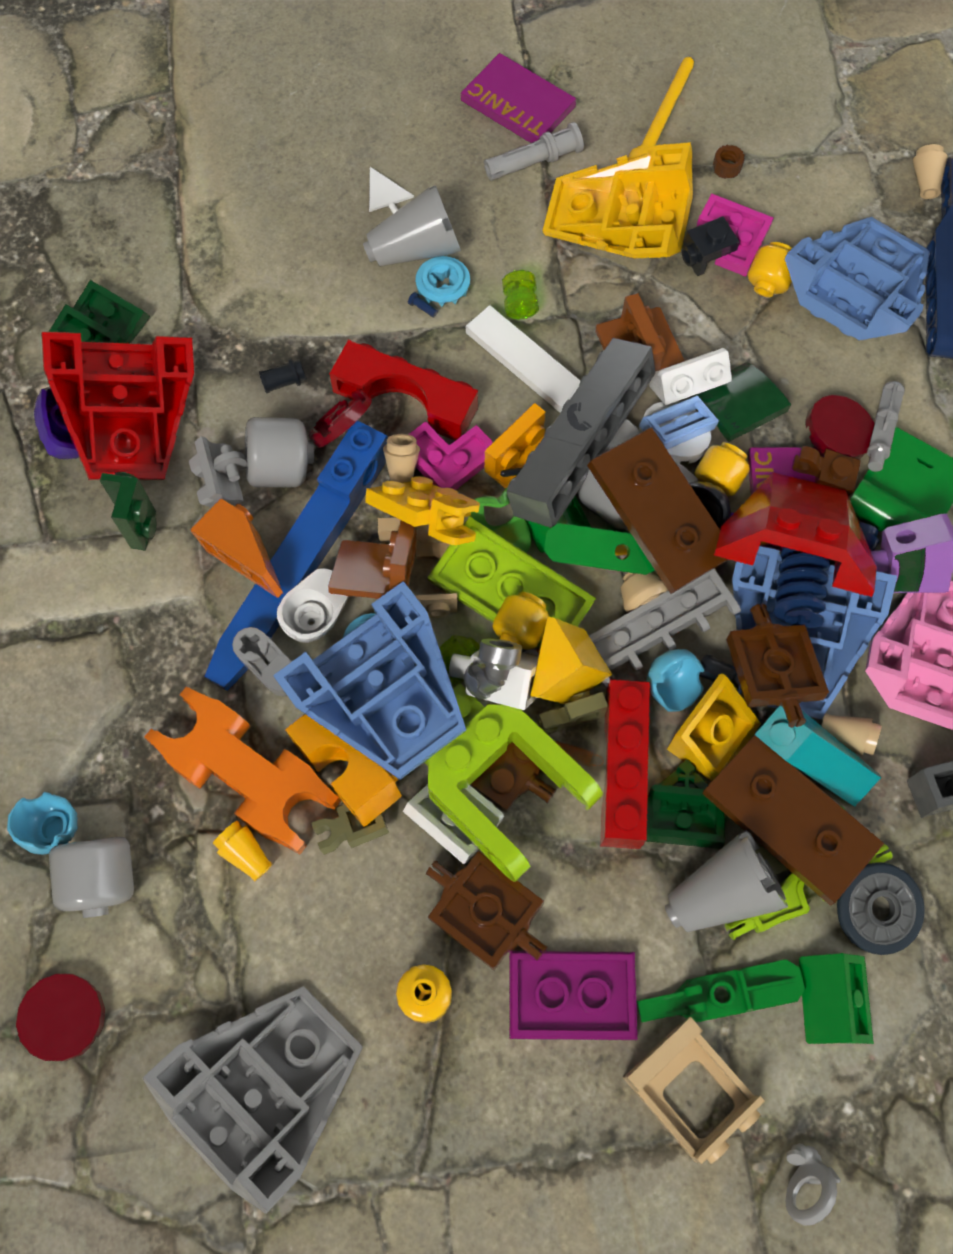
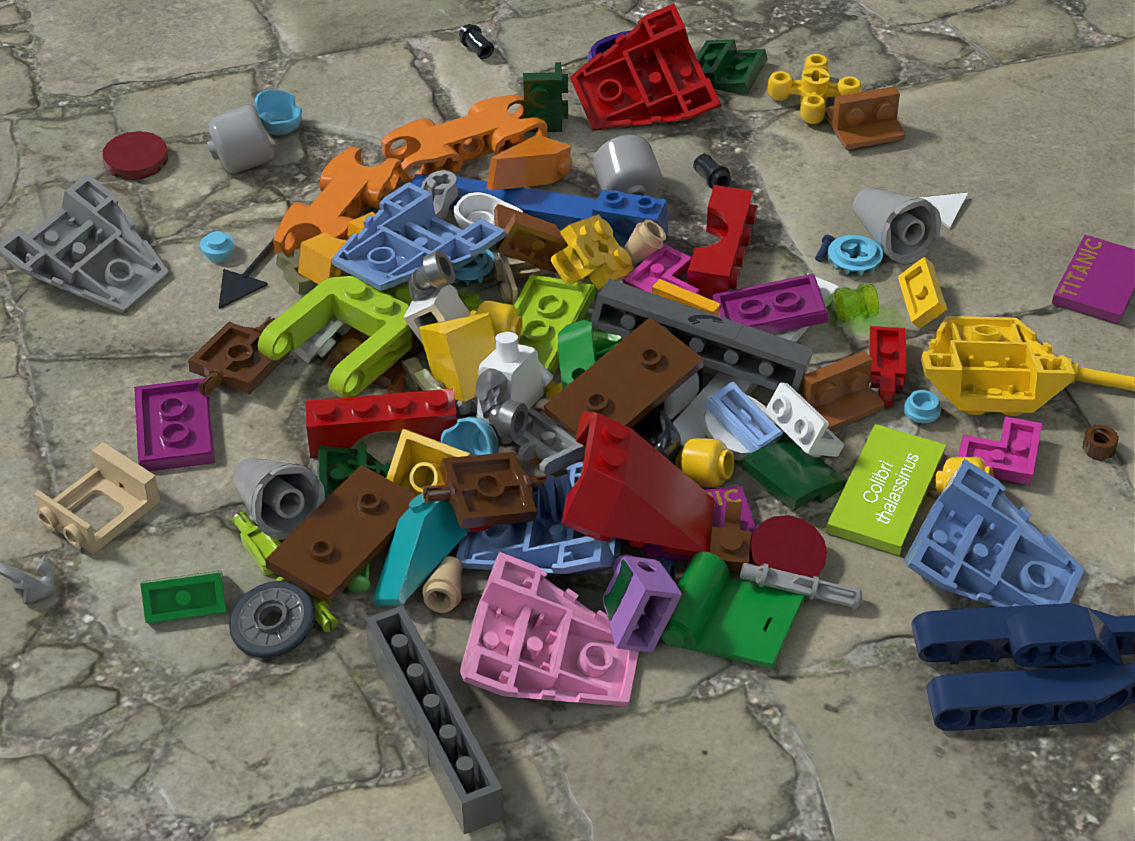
camera: 80 degrees right, 25 degrees down
(161, 639) = (447, 145): none -> orange piece
(174, 250) = (813, 87): none -> yellow gear
(220, 470) = (586, 145): light grey hips -> none
(239, 219) = (866, 118): none -> dark orange bracket
(242, 850) = (269, 217): yellow cone -> none
(273, 922) = (217, 246): none -> medium azure plate
(339, 418) = (688, 208): dark red tile -> none
(342, 903) = (237, 285): none -> black piece
(430, 1009) = (164, 325): yellow head -> none
(515, 367) = (775, 305): none -> magenta tile
(517, 238) = (922, 293): none -> yellow plate
(547, 148) = (1045, 302): light grey pin -> none
(600, 289) = (888, 368): none -> red hinge
(638, 624) = (510, 385): none -> torso
(666, 279) = (922, 407): none -> medium azure plate
(708, 243) = (973, 423): black bracket -> none
(747, 991) = (188, 536): green piece -> none
(761, 334) = (886, 489): none -> lime tile

